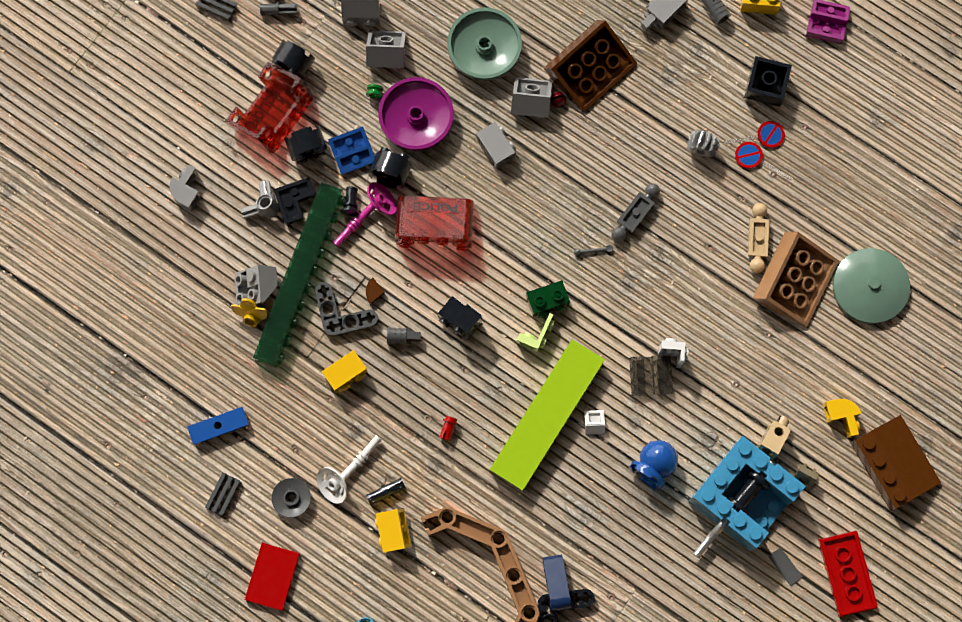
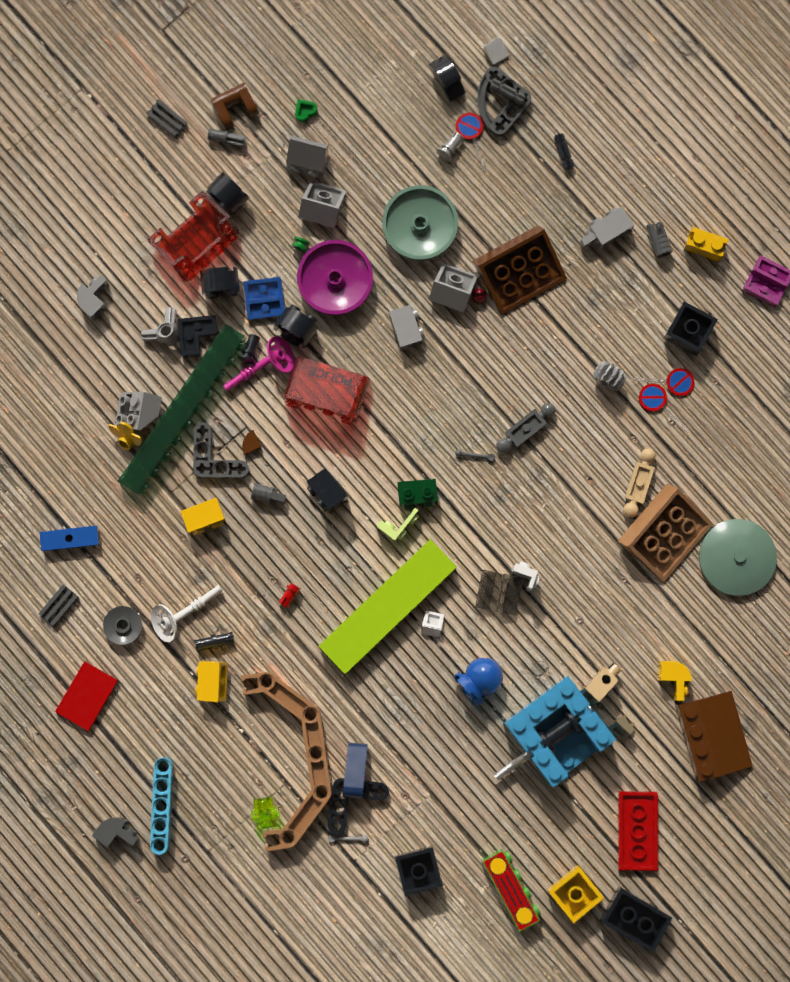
camera: 15 degrees right, 5 degrees up
(785, 566) = (580, 809): dark grey sticker -> none

